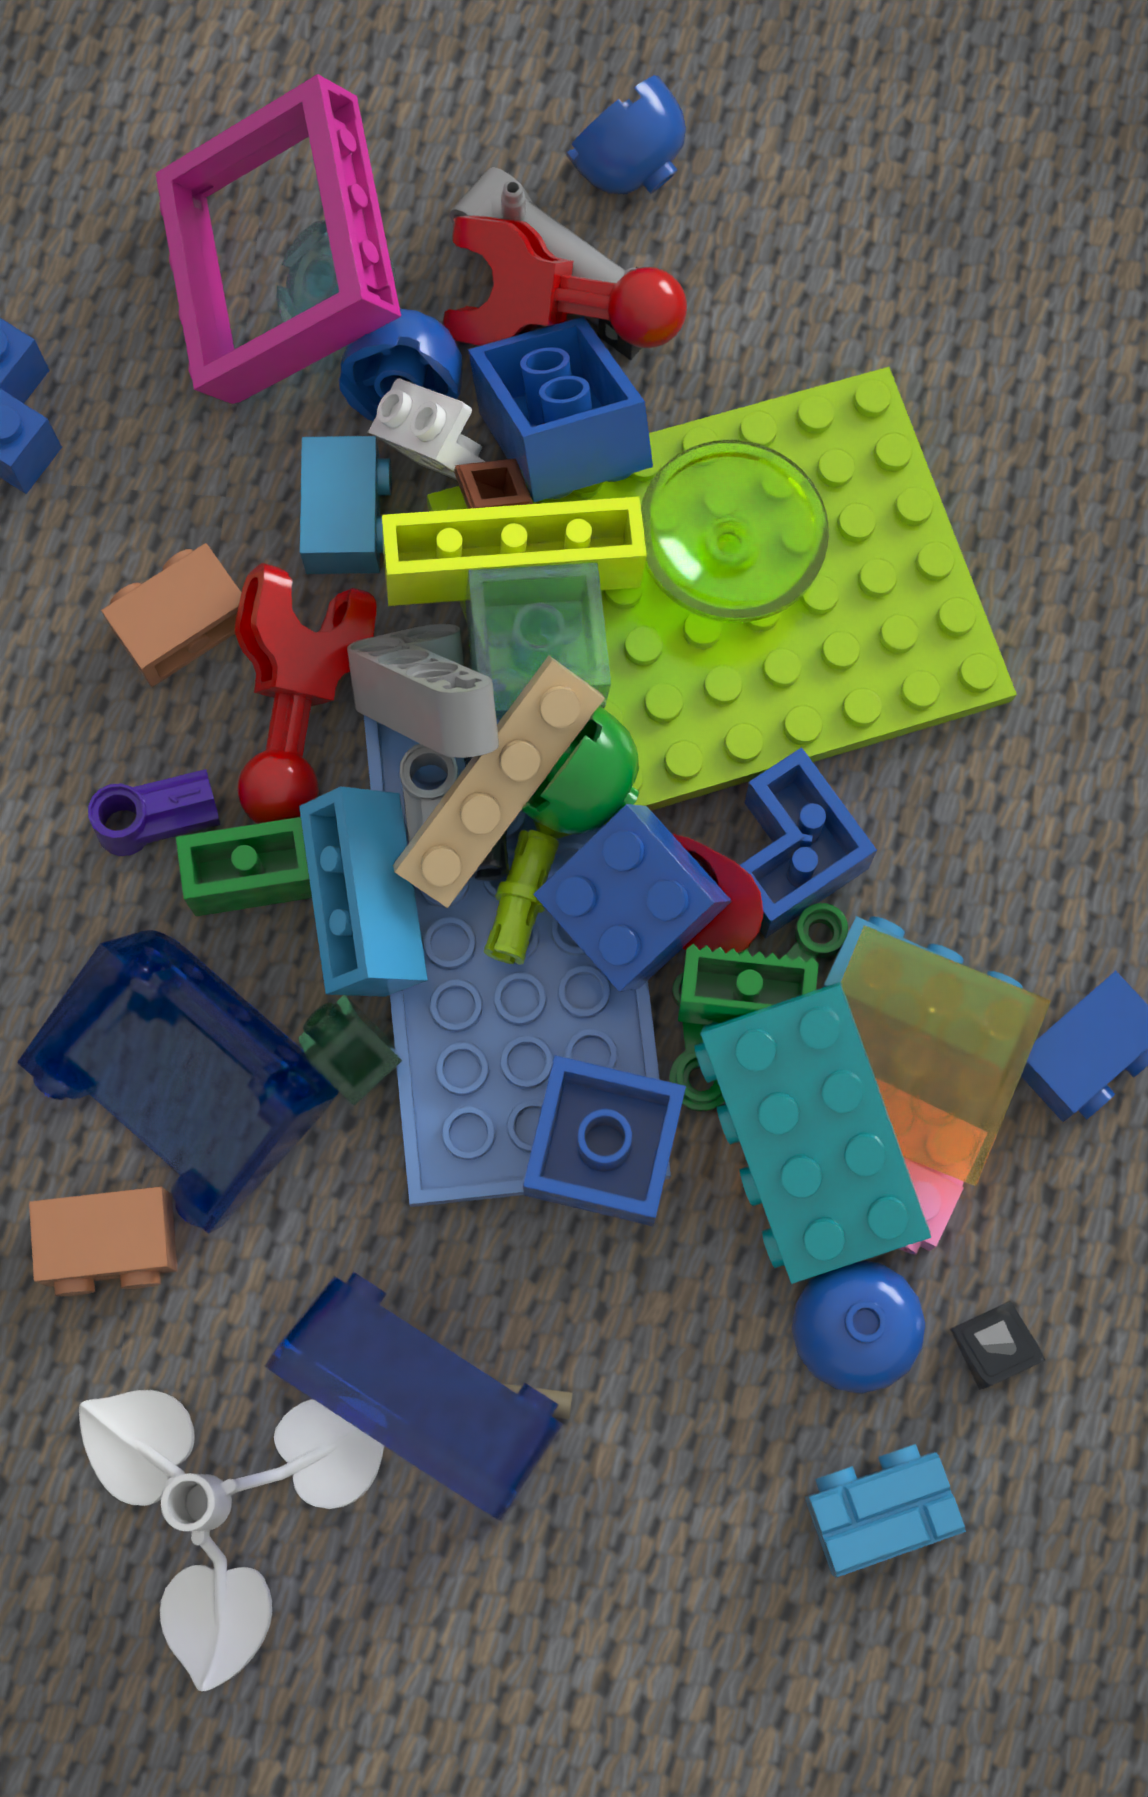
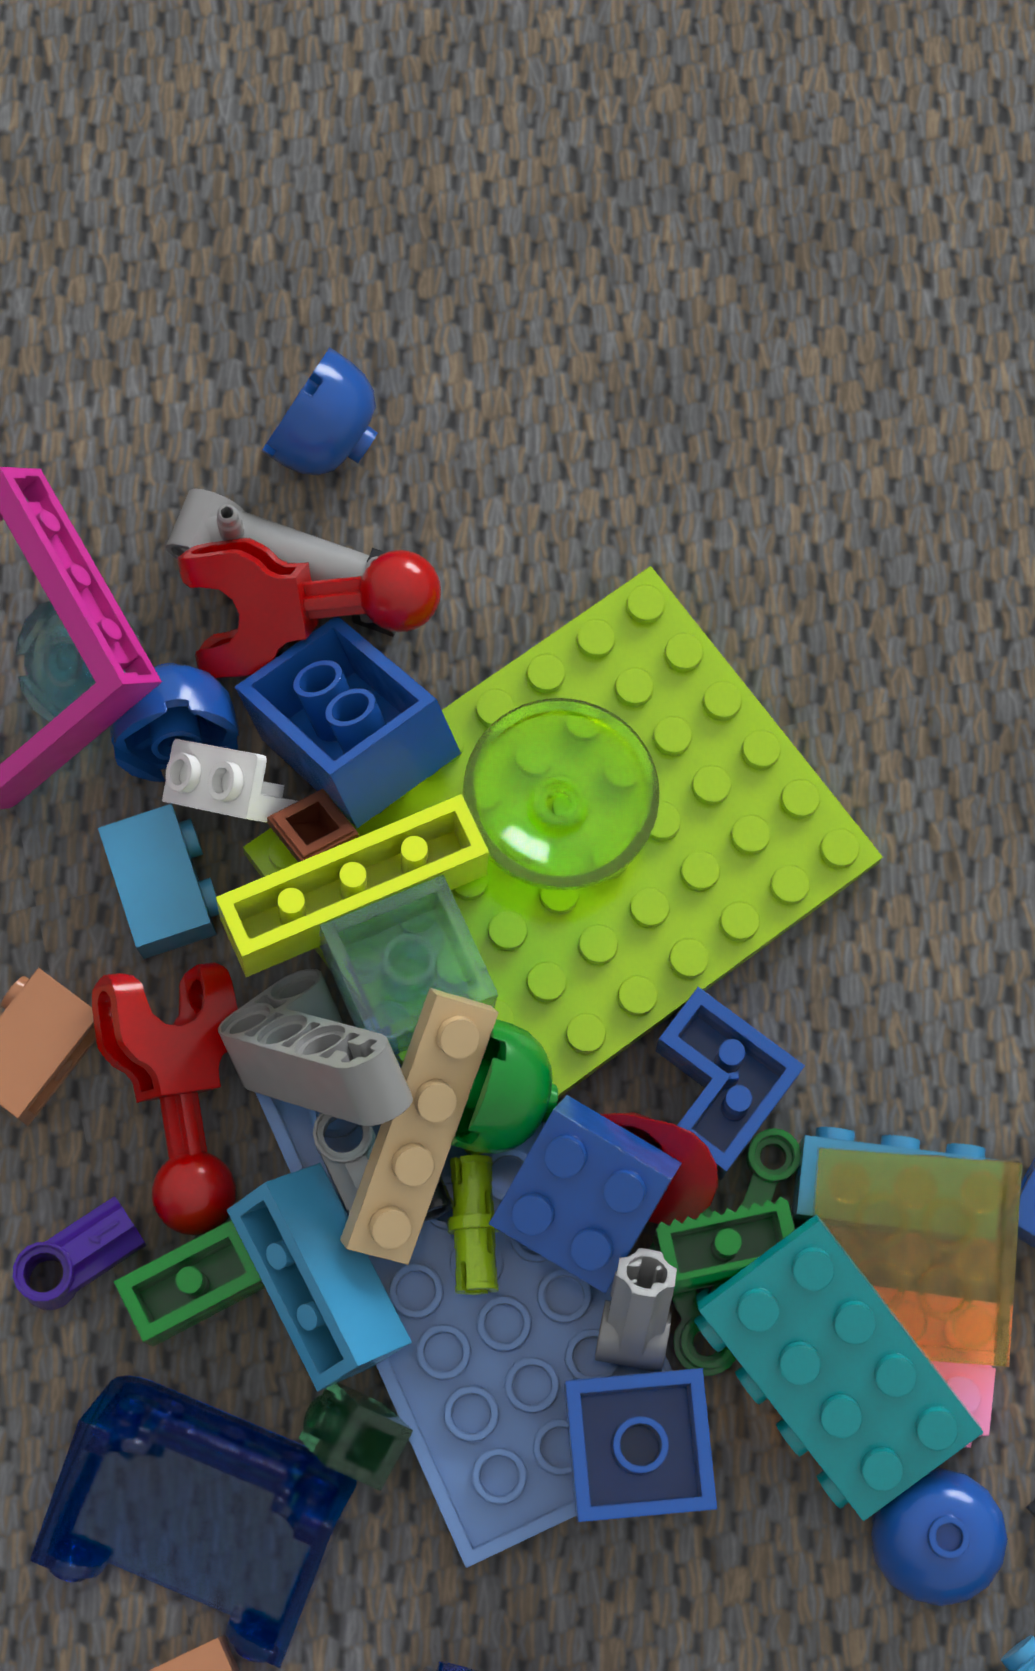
camera: 20 degrees left, 0 degrees up
(642, 1025) = (638, 1316): none -> light grey piece

